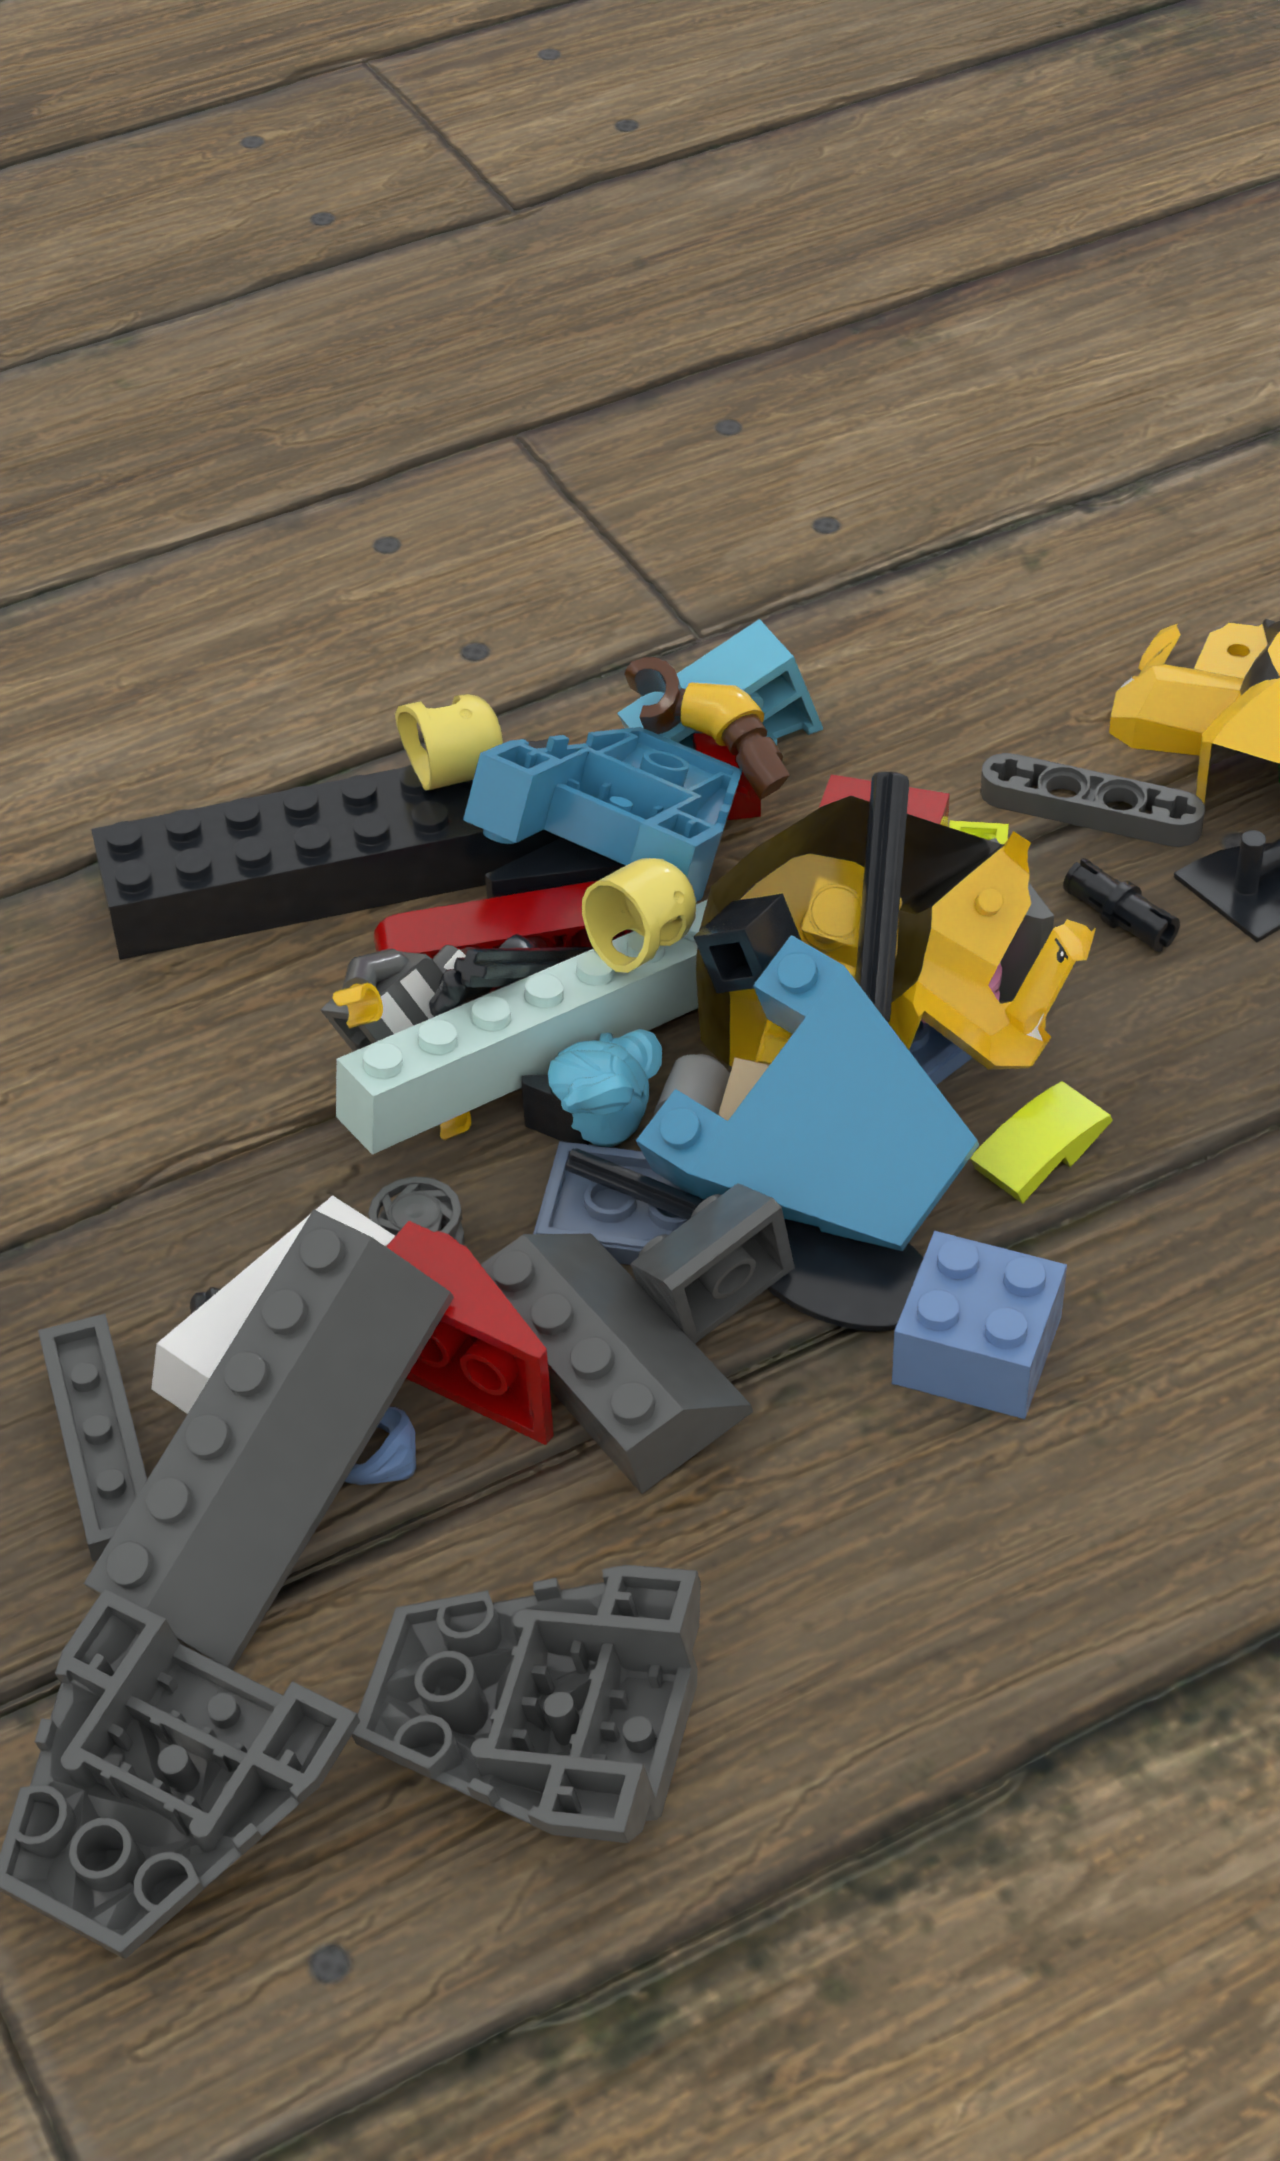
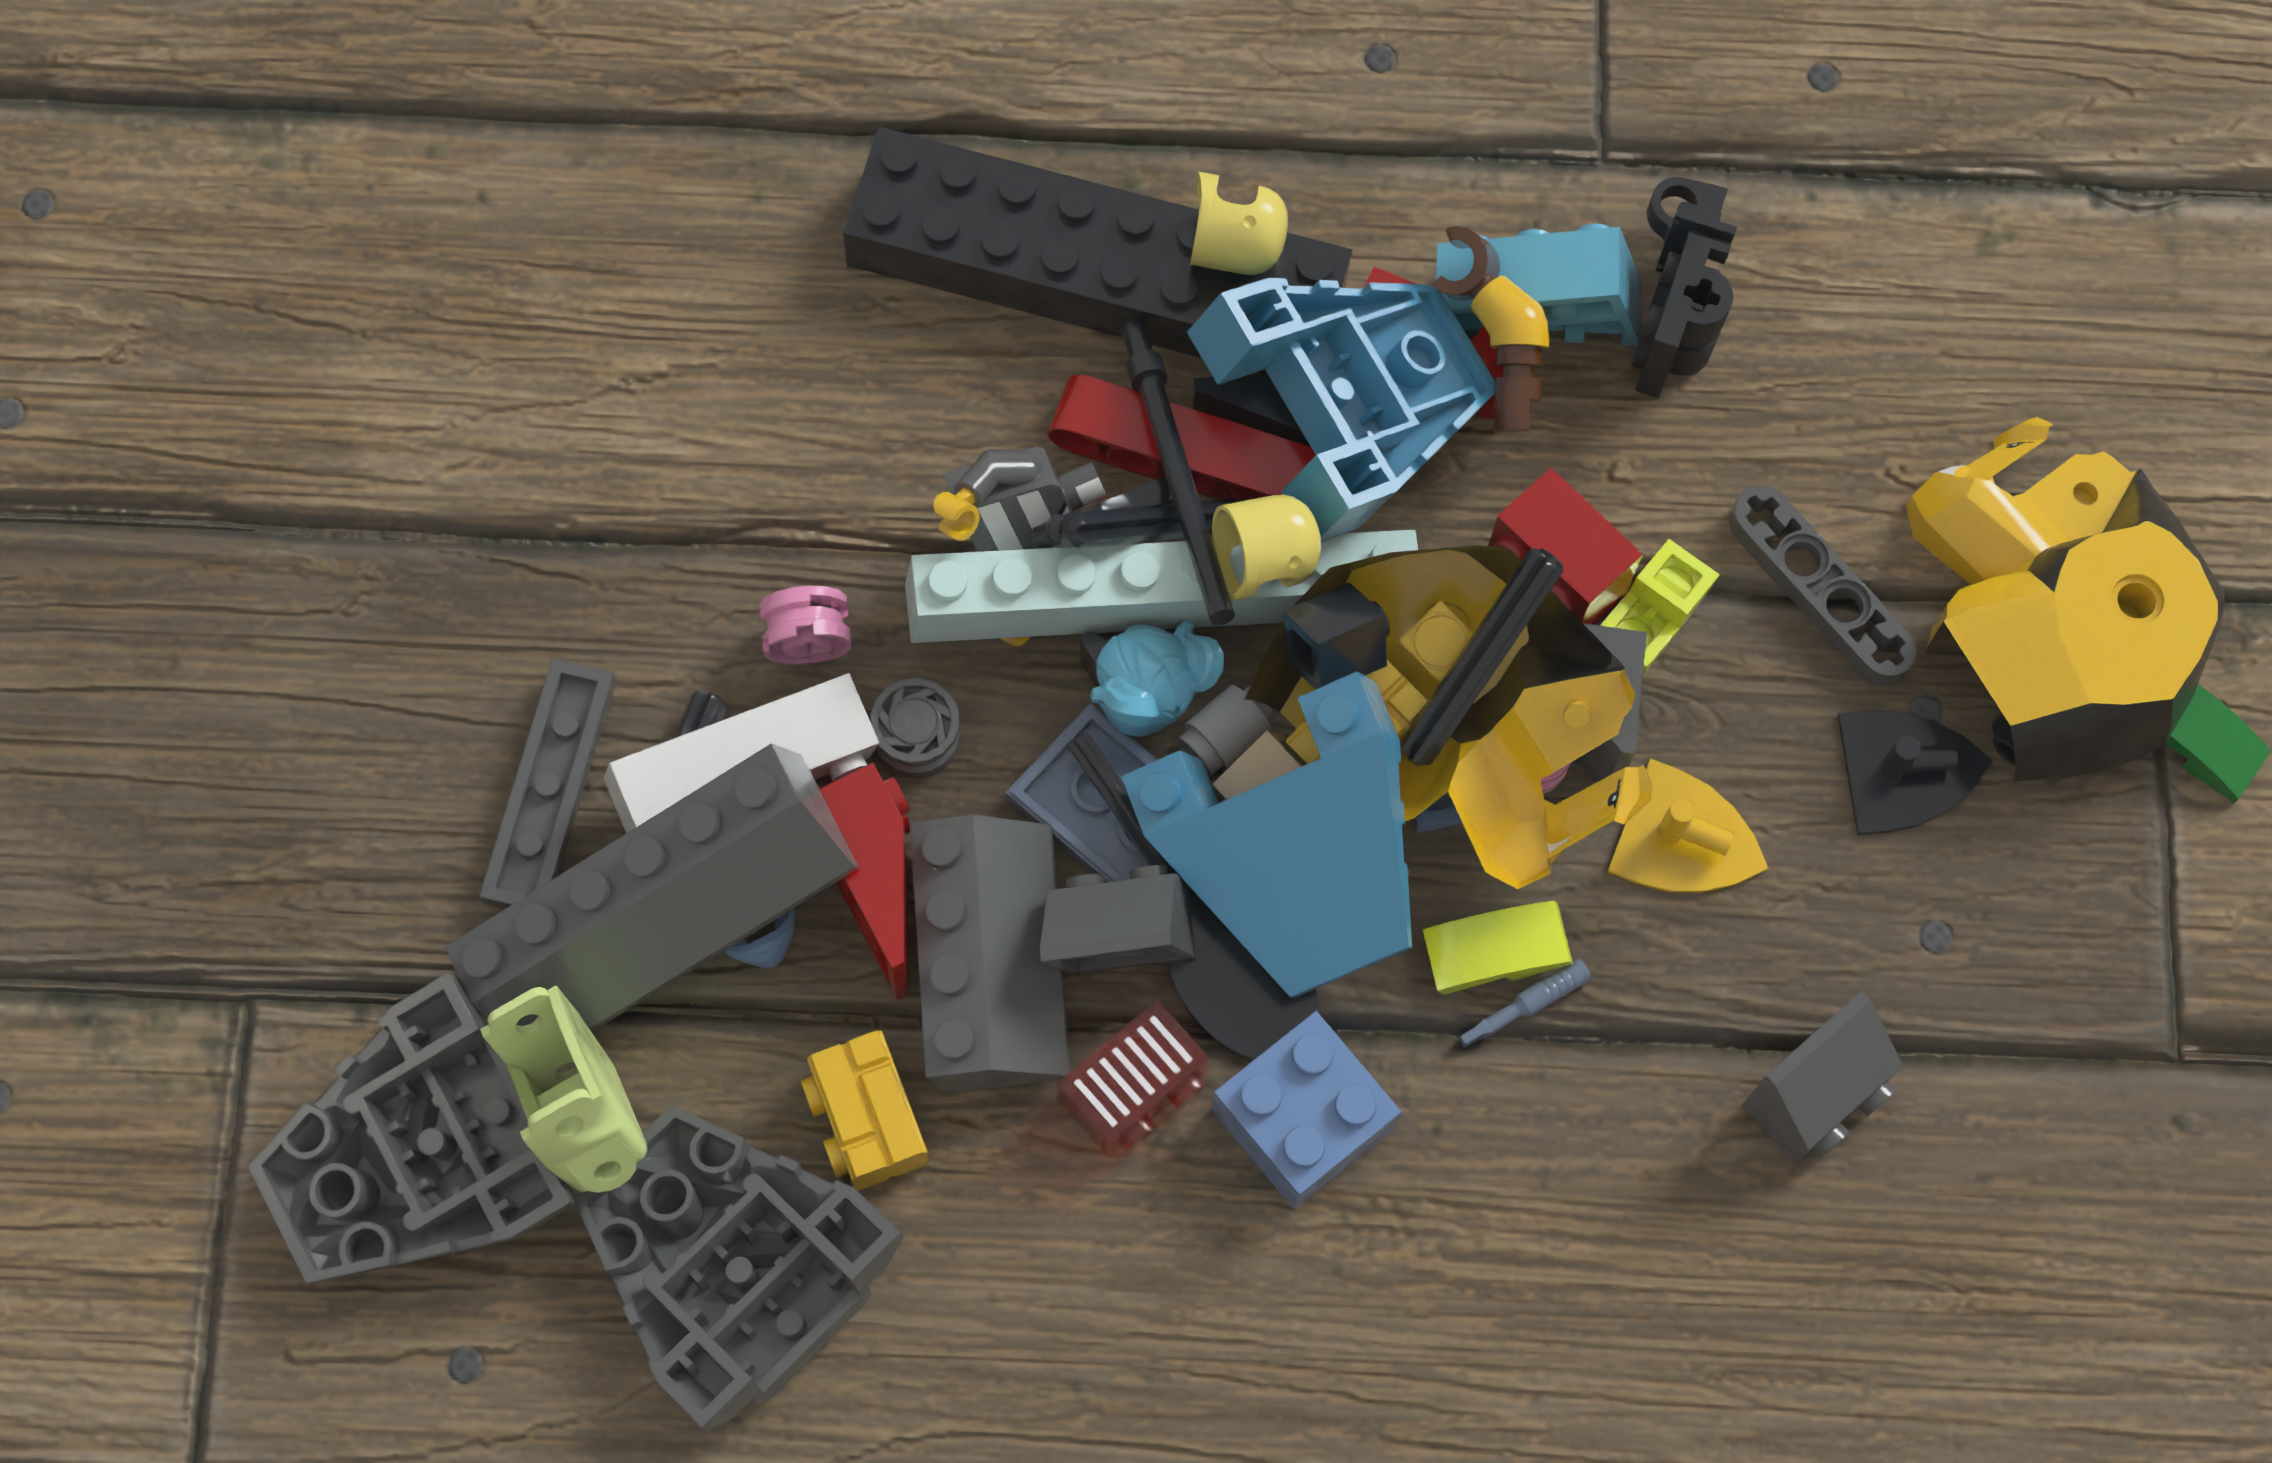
camera: 25 degrees right, 25 degrees up
(263, 1194) = (805, 625): none -> bright pink wheel
(319, 1616) = (577, 1117): none -> yellowish green piece
(449, 888) = (1148, 378): none -> black bar
(580, 1521) = (865, 1110): none -> yellow brick
(810, 1381) = (1134, 1080): none -> clear red brick
(837, 653) = (1689, 296): none -> black plate
(1099, 1167) = (1532, 1000): none -> sand blue piece
(1121, 904) = (1757, 727): black pin -> none
(1126, 1005) = (1686, 838): none -> yellow shield

